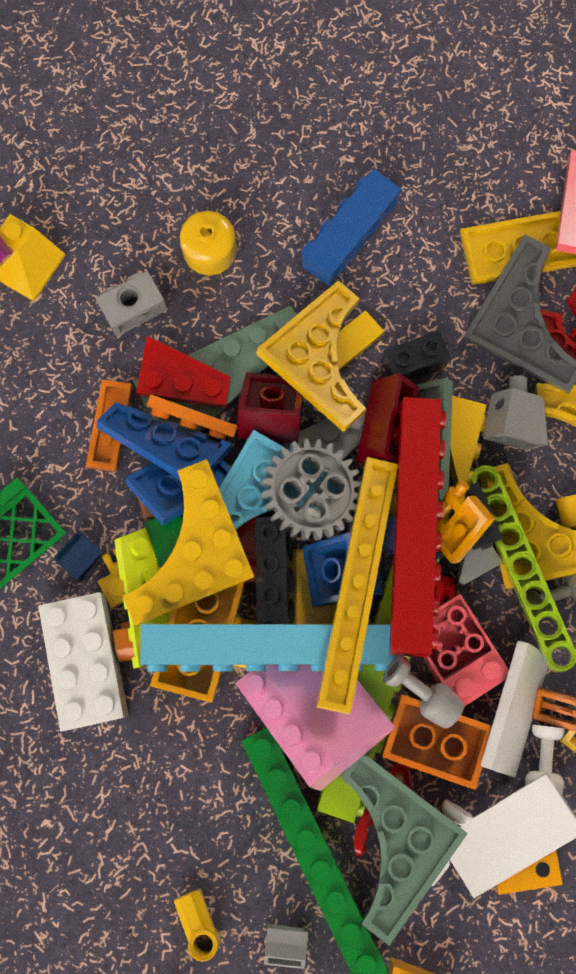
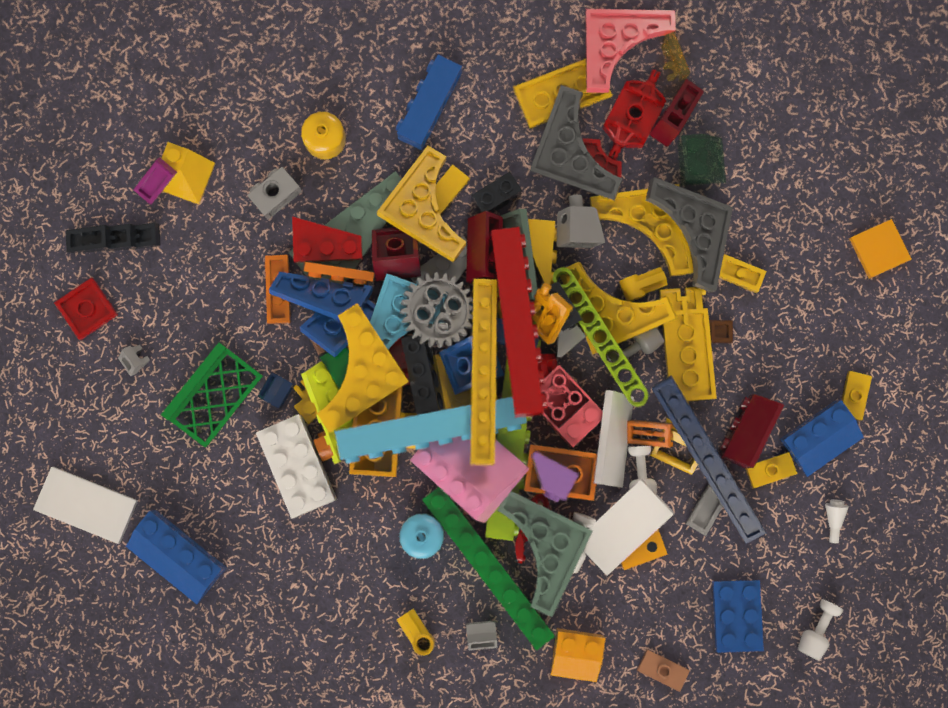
camera: 15 degrees left, 5 degrees up
(223, 777) = (413, 528): none -> medium azure head
(427, 748) = (553, 477): none -> medium lavender slope
(437, 703) = (556, 445): light grey piece -> none

